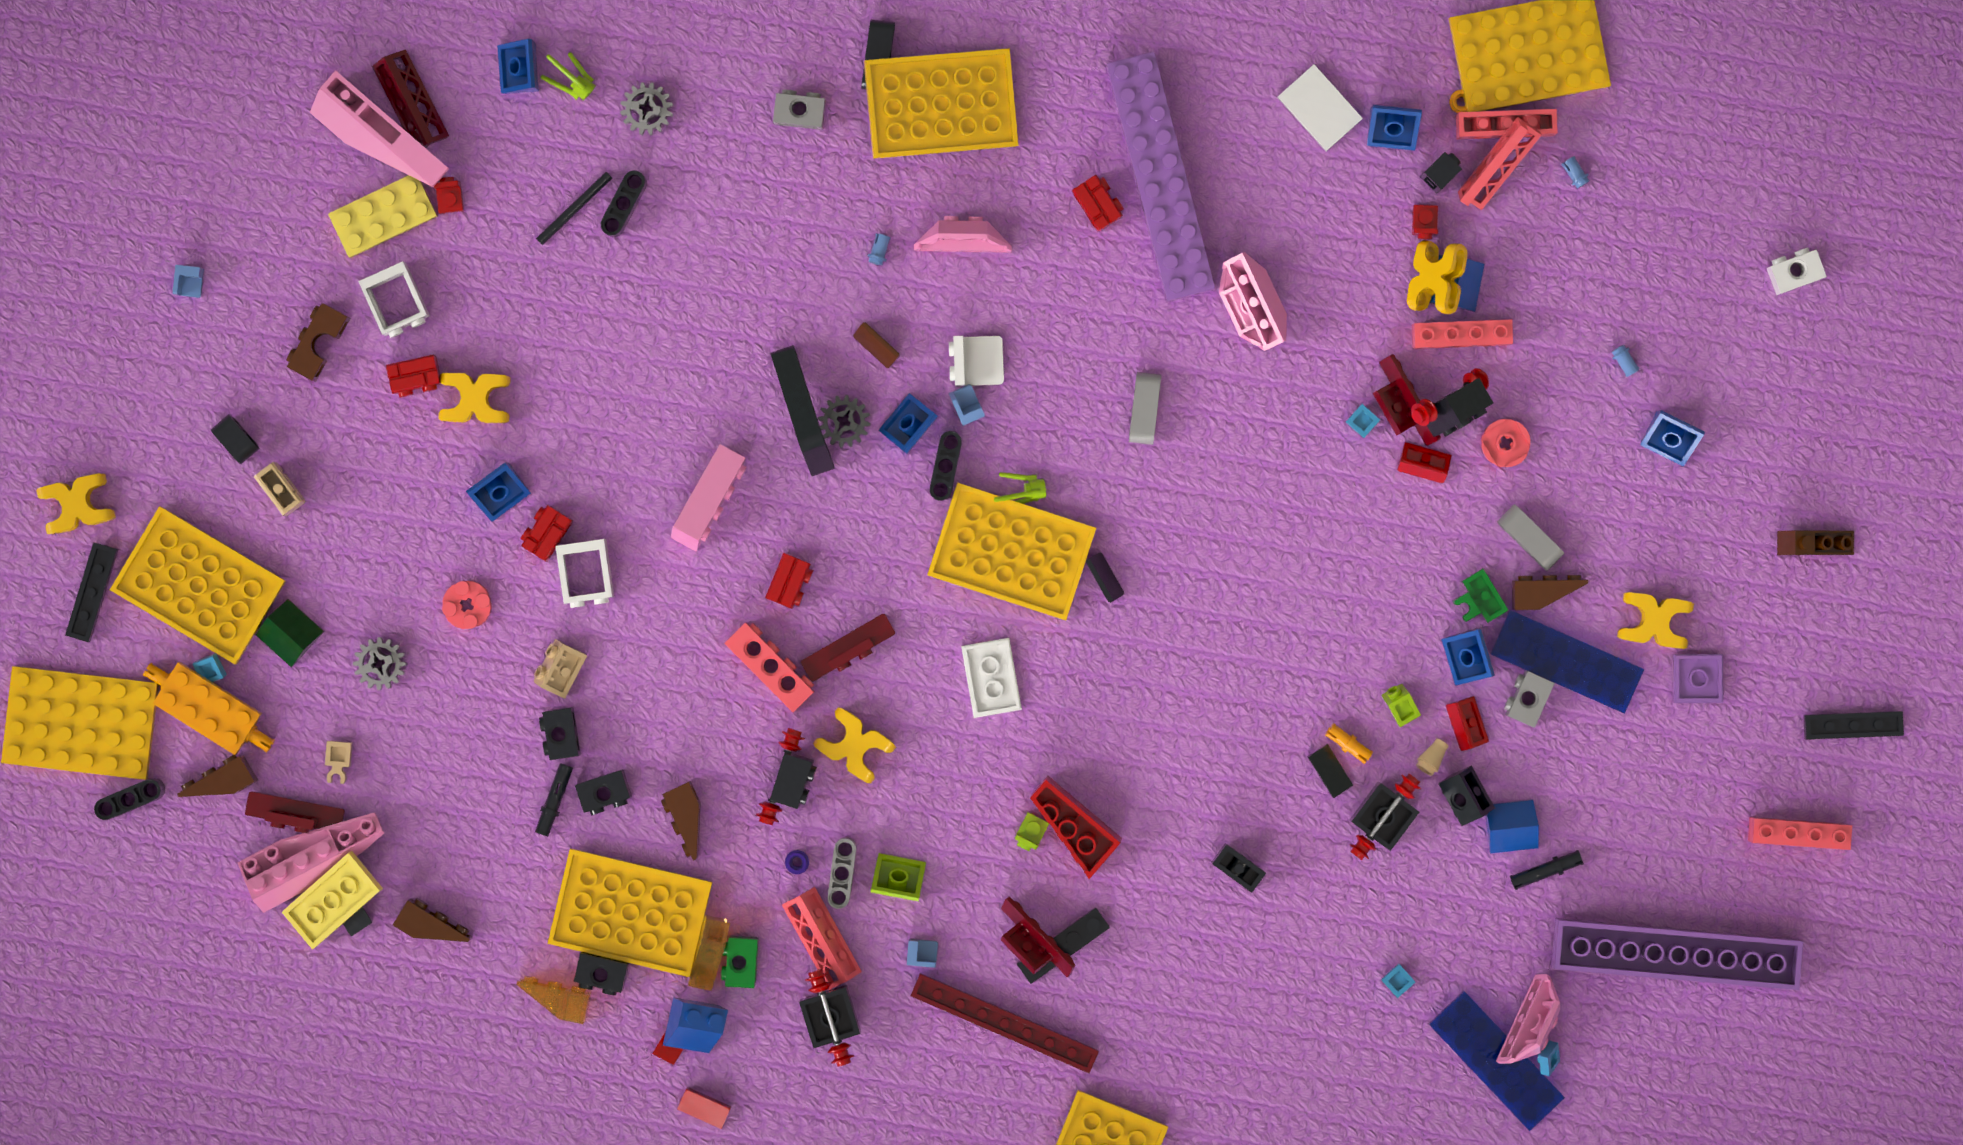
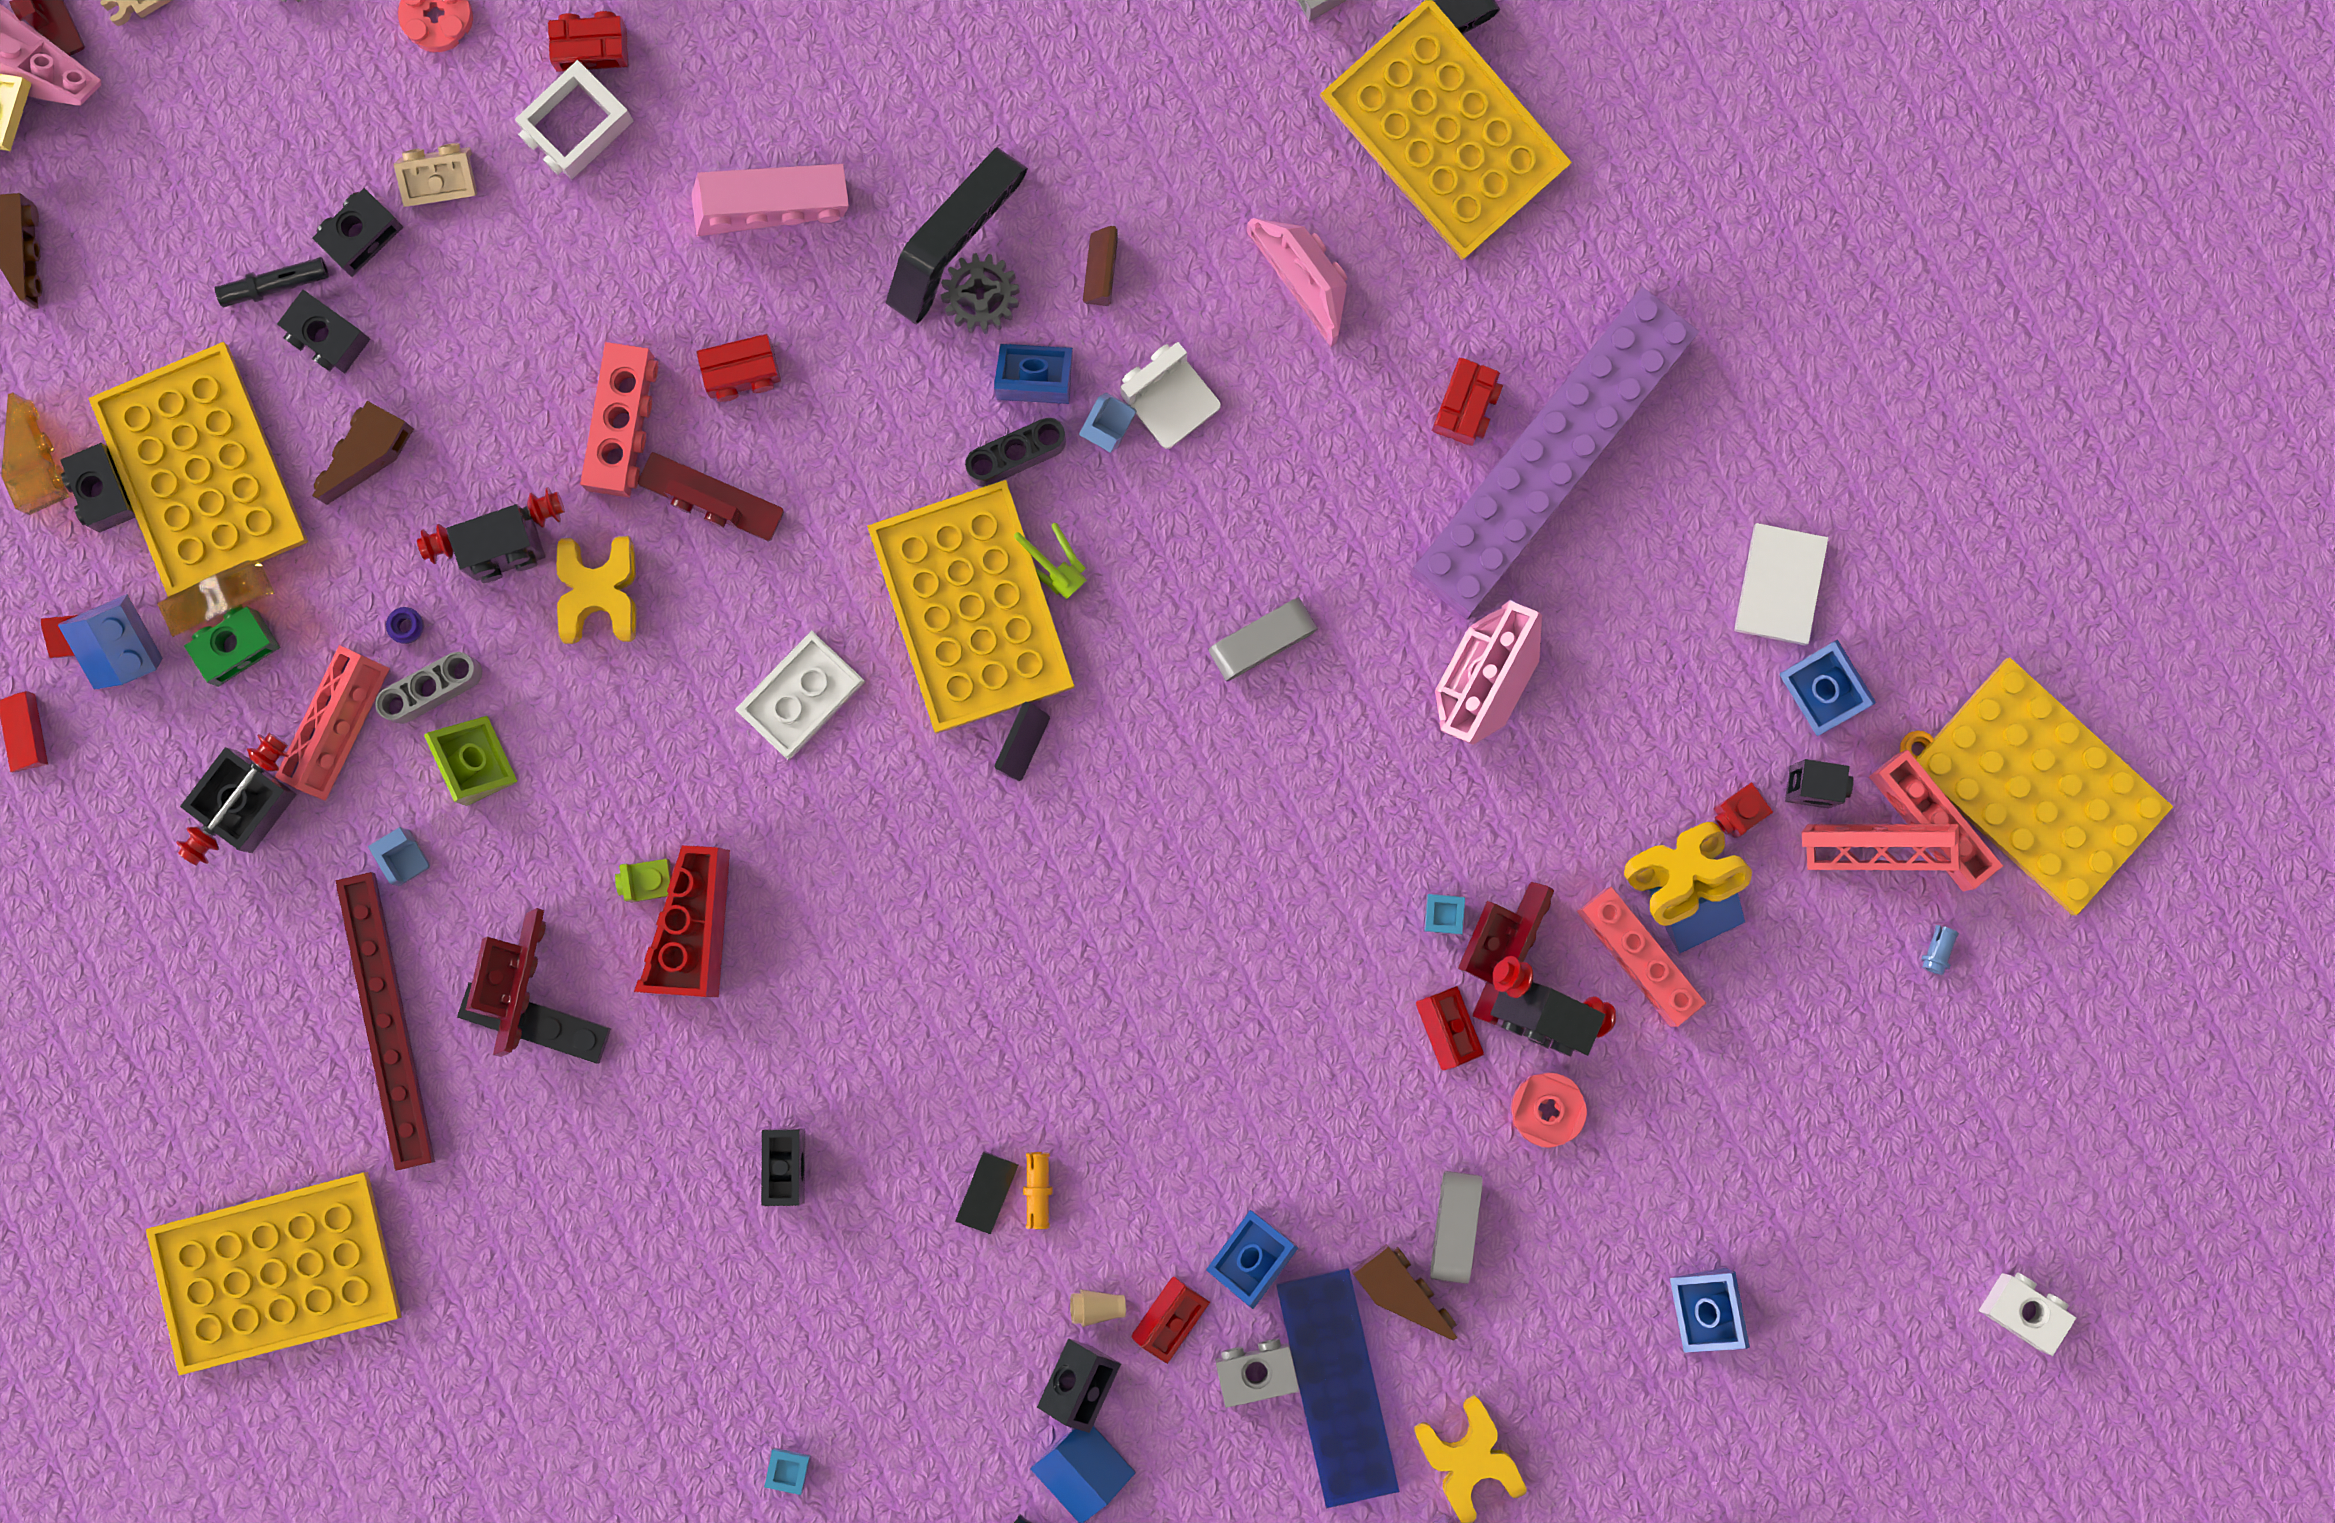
camera: 55 degrees right, 5 degrees down
(879, 249) = (1216, 187): medium blue pin -> none
(1384, 816) = (977, 1301): black brick -> none
(1401, 704) = (1132, 1219): lime bracket -> none
(1481, 597) = (1337, 1221): green plate -> none
(1625, 360) = (1759, 1182): medium blue pin -> none

